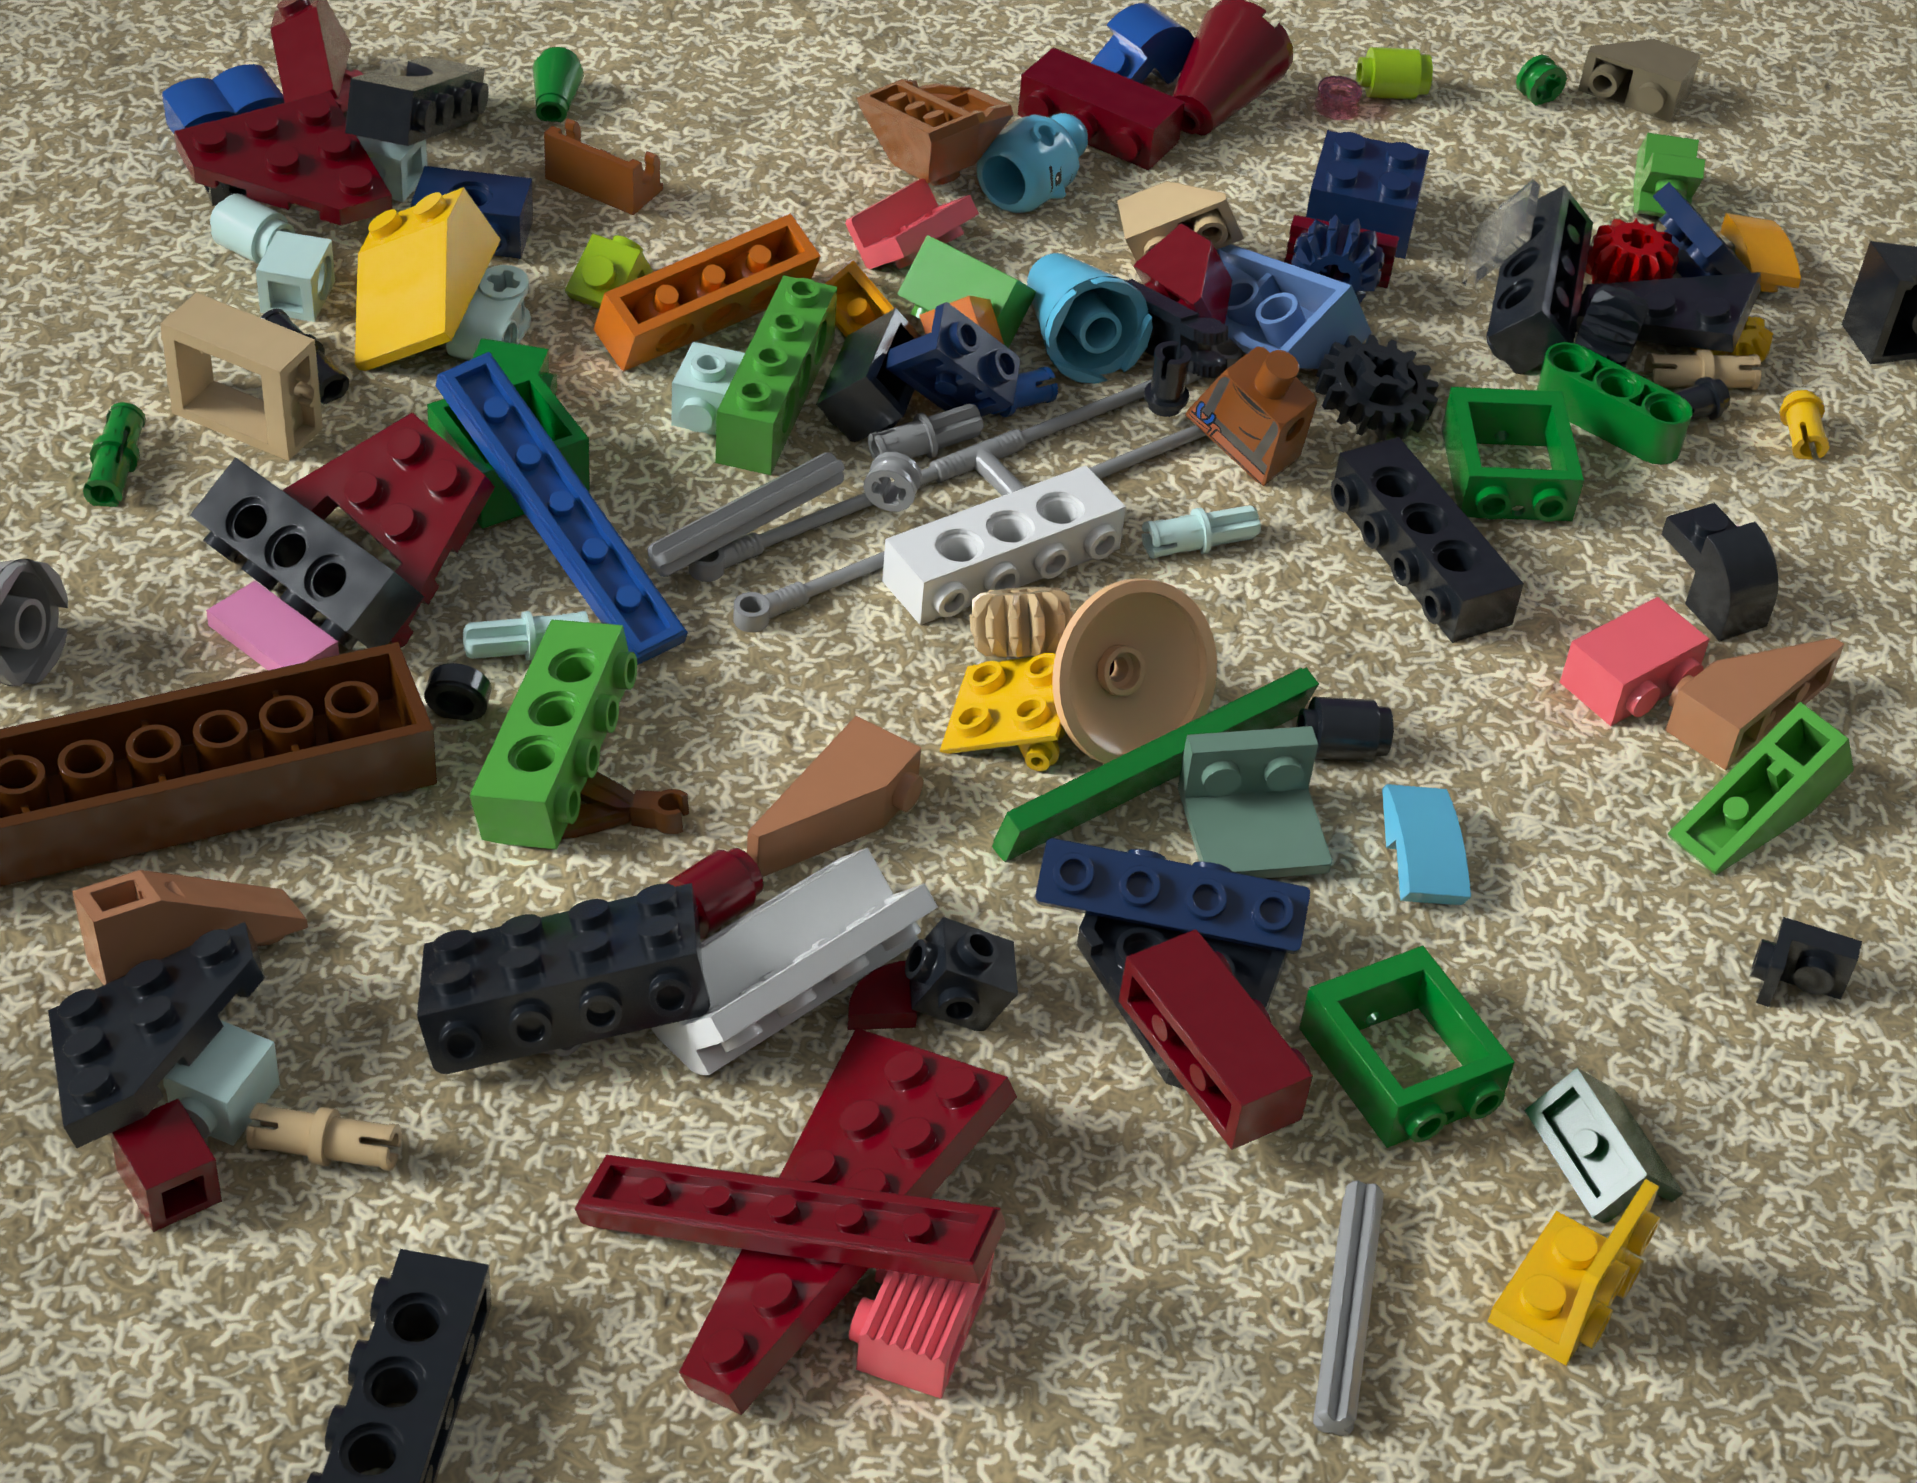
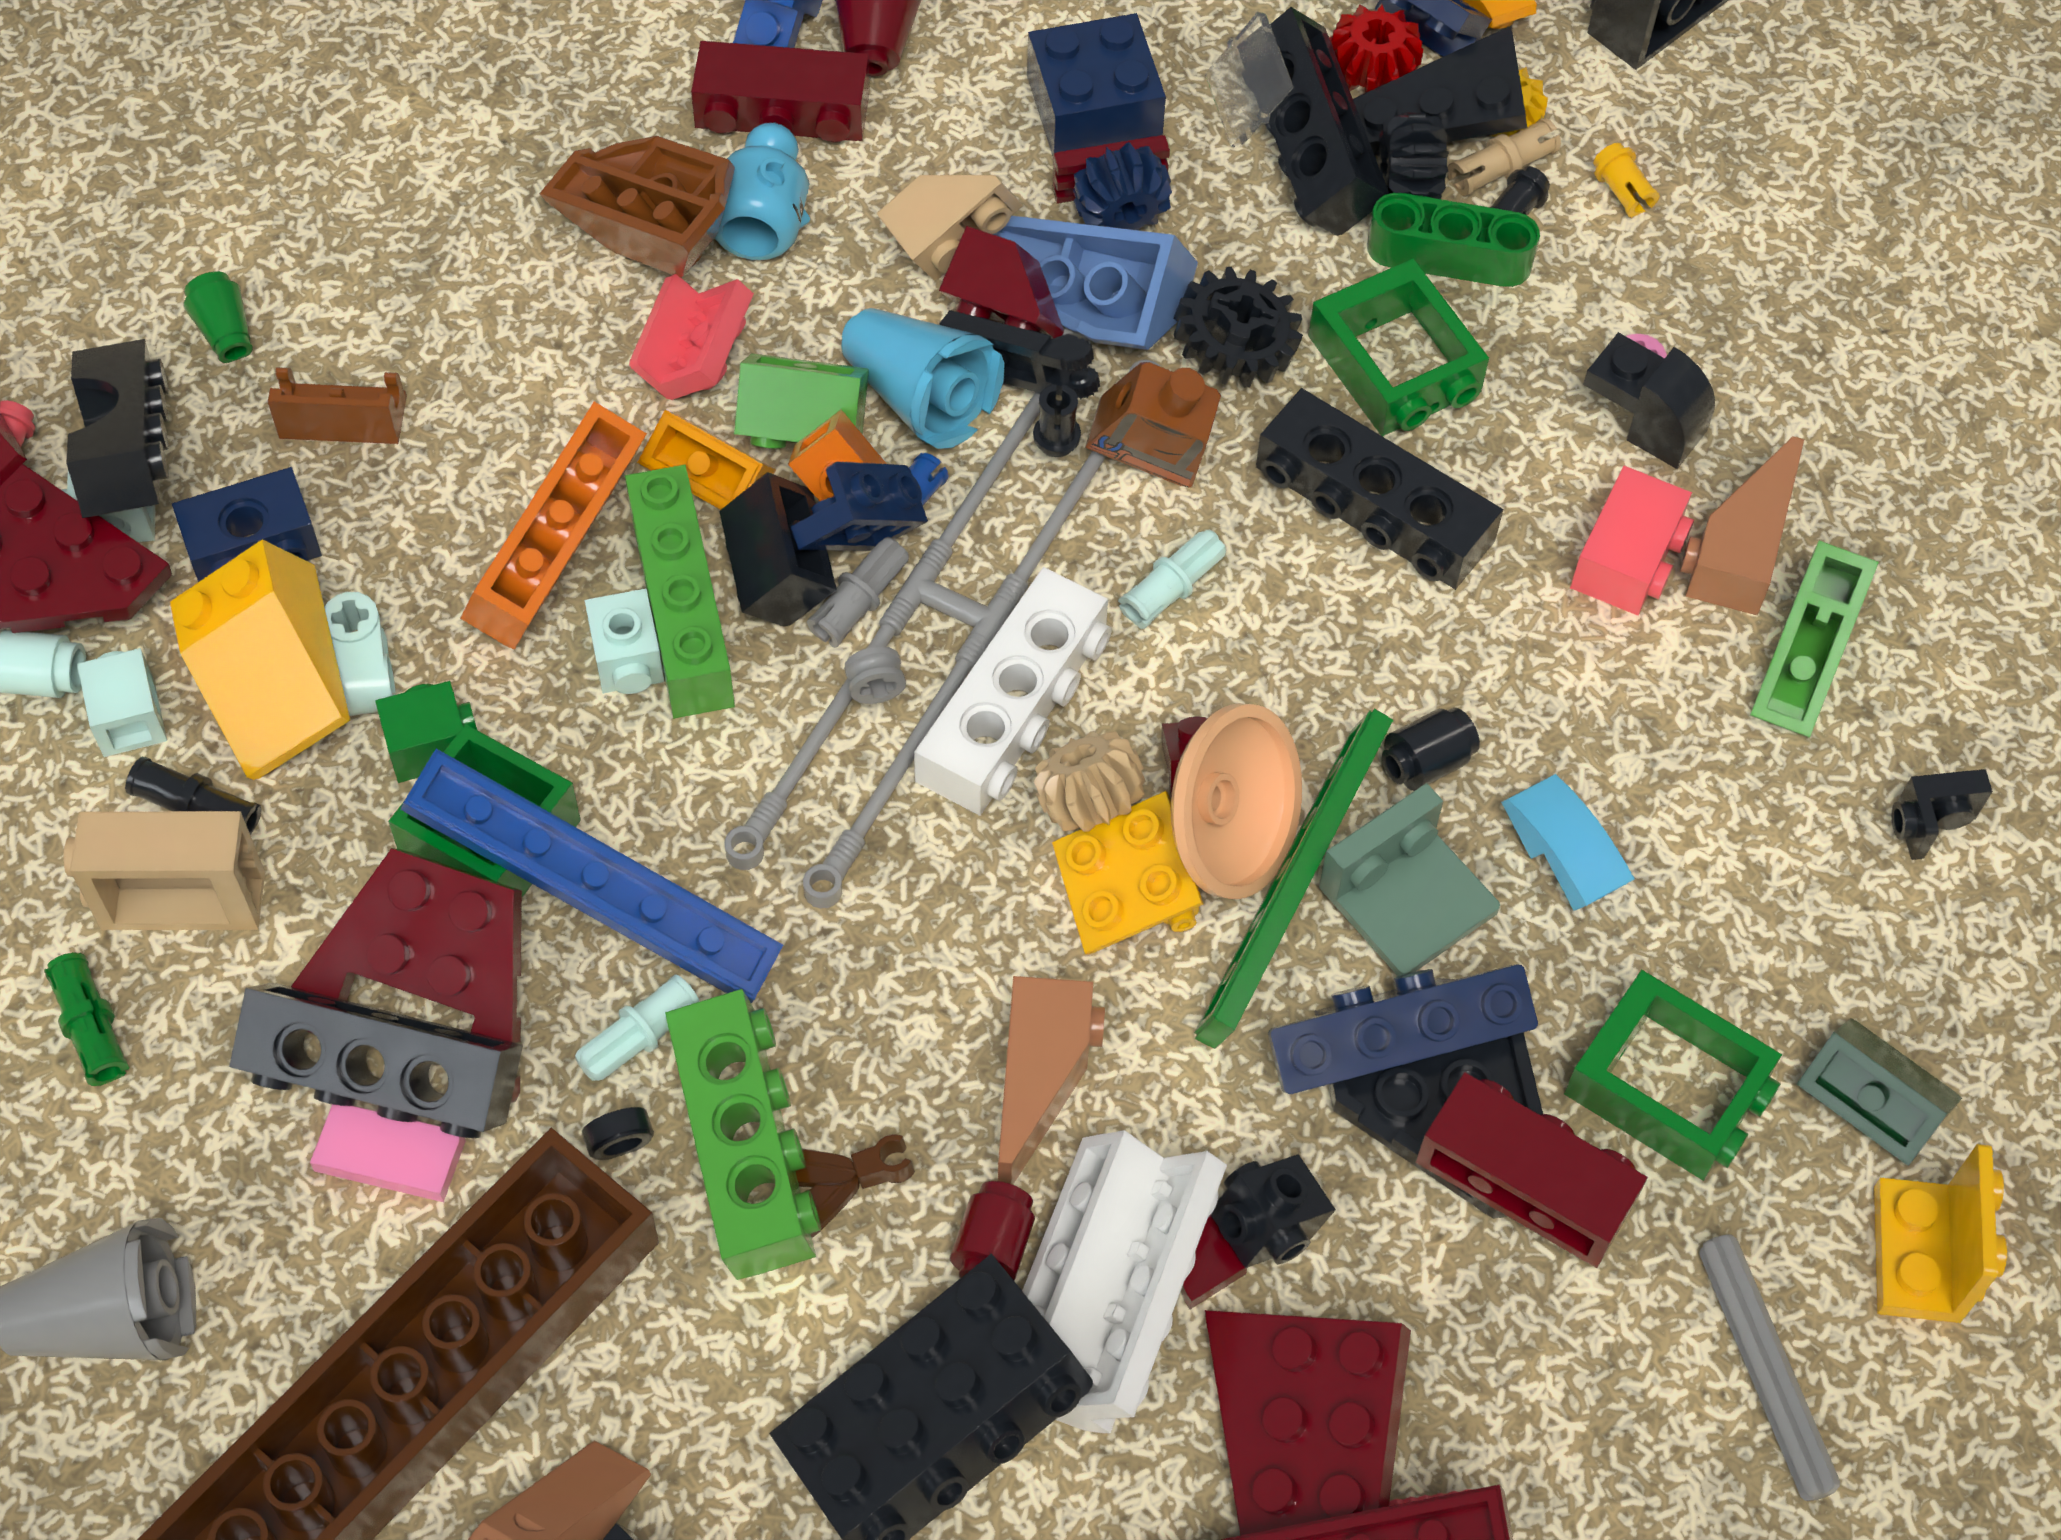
camera: 25 degrees left, 15 degrees up
(605, 267) = (431, 541): lime bracket -> none
(745, 514) = (757, 782): light grey axle -> none

